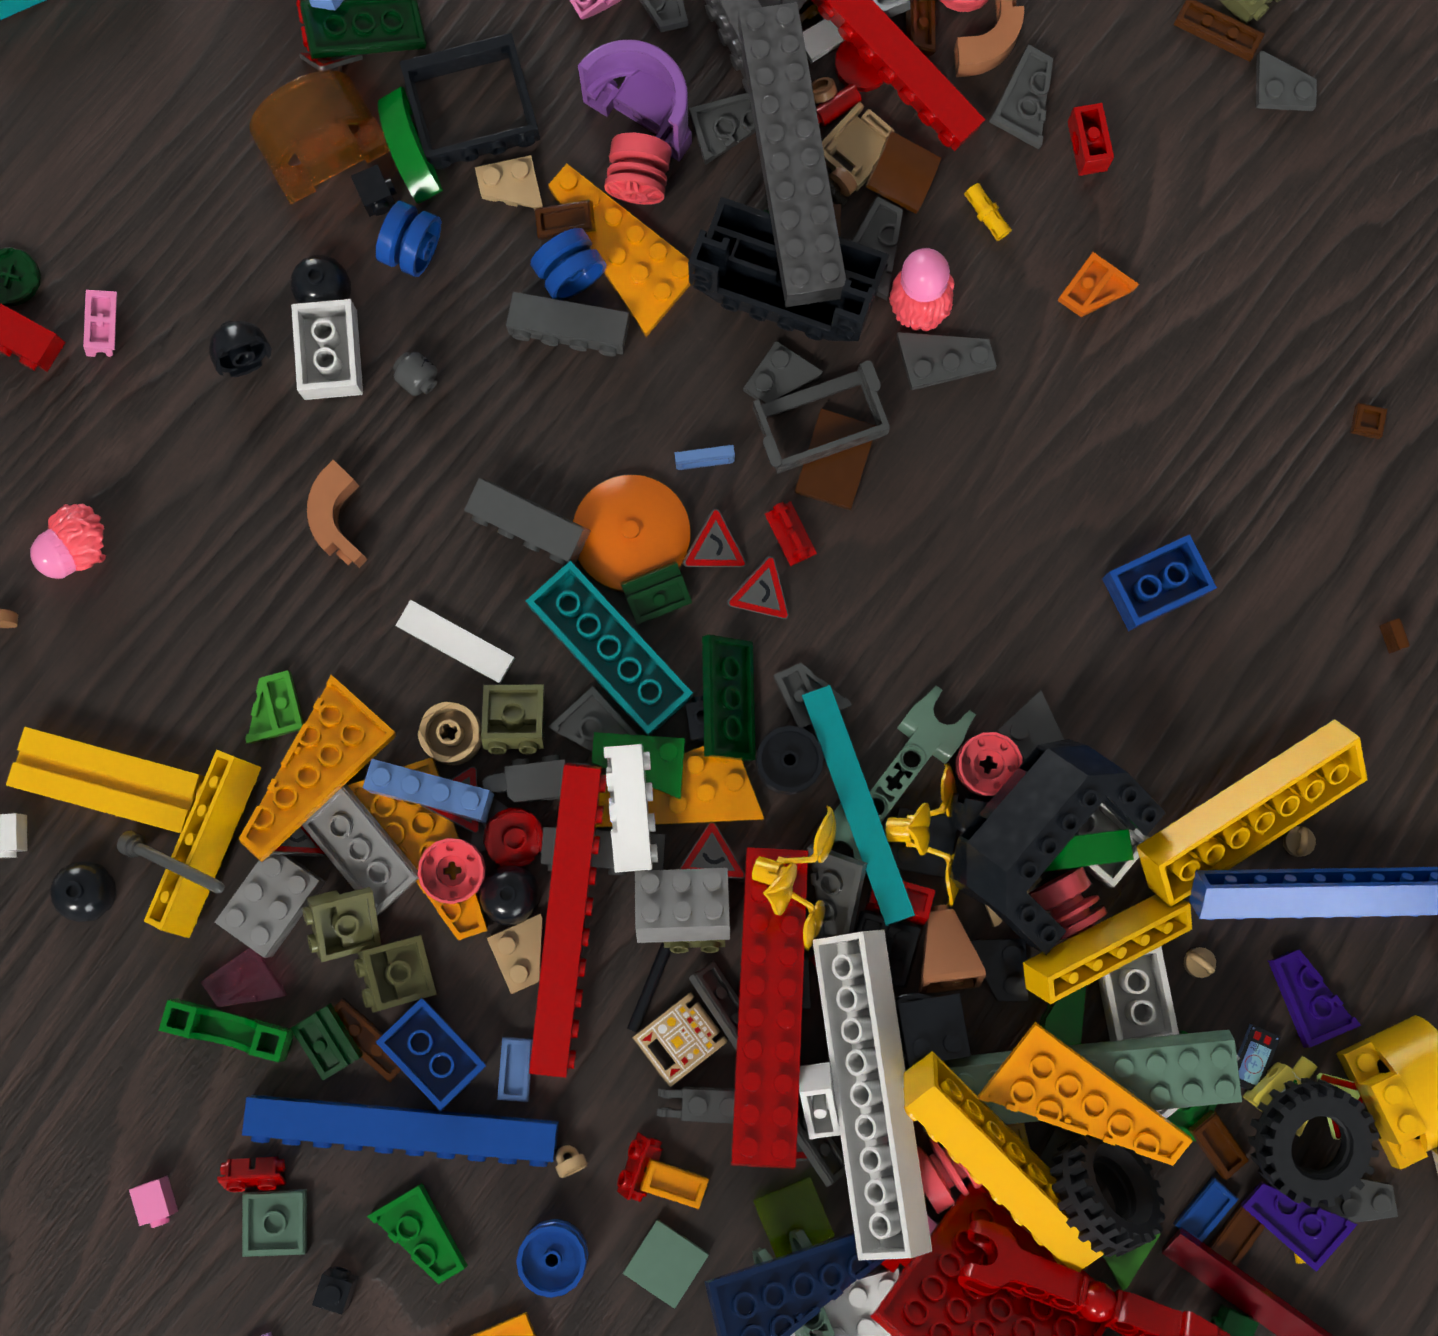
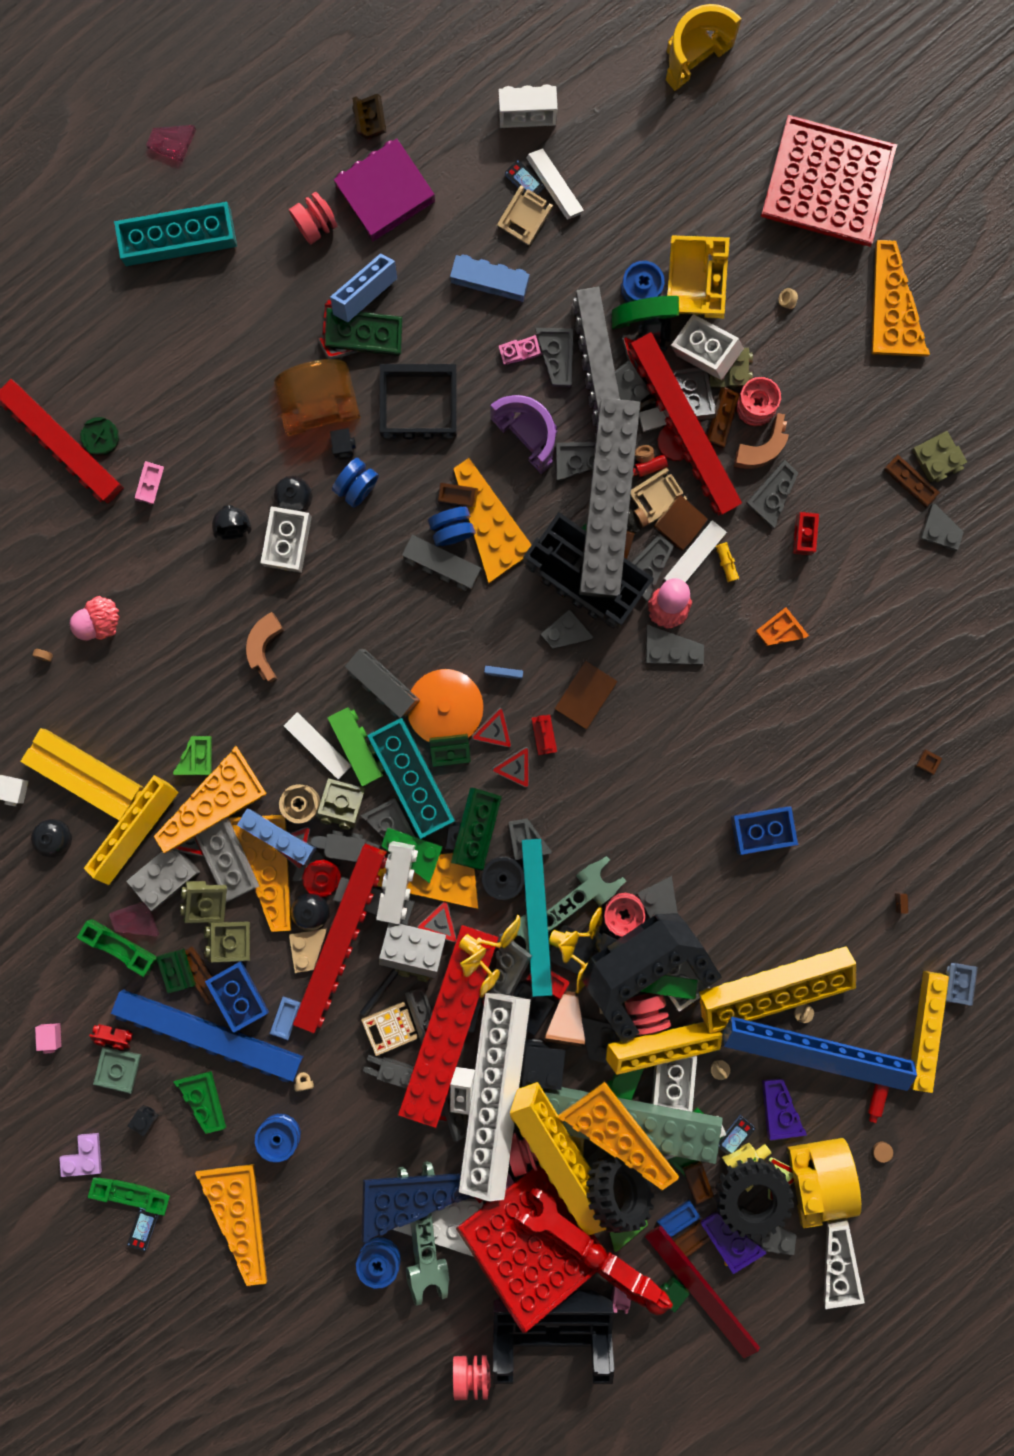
camera: 15 degrees right, 5 degrees up
(134, 845) = (89, 818): dark grey piece -> none
(405, 146) = (369, 419): green slope -> none
(415, 373) = (337, 569): dark grey head -> none
(440, 885) = (268, 896): coral wheel -> none
(510, 182) = (430, 460): tan wing -> none
(513, 626) = (355, 746): none -> bright green brick
(638, 168) = (513, 473): coral wheel -> none
(639, 1154) = (348, 1090): red hinge -> none
(666, 1263) = (345, 1159): sand green tile -> none
(674, 1183) = (362, 1113): light orange tile -> none
(791, 1209) = (431, 1148): clear neon green tile -> none
(870, 384) = (617, 647): dark grey piece -> none
(940, 207) = (697, 552): none -> white tile

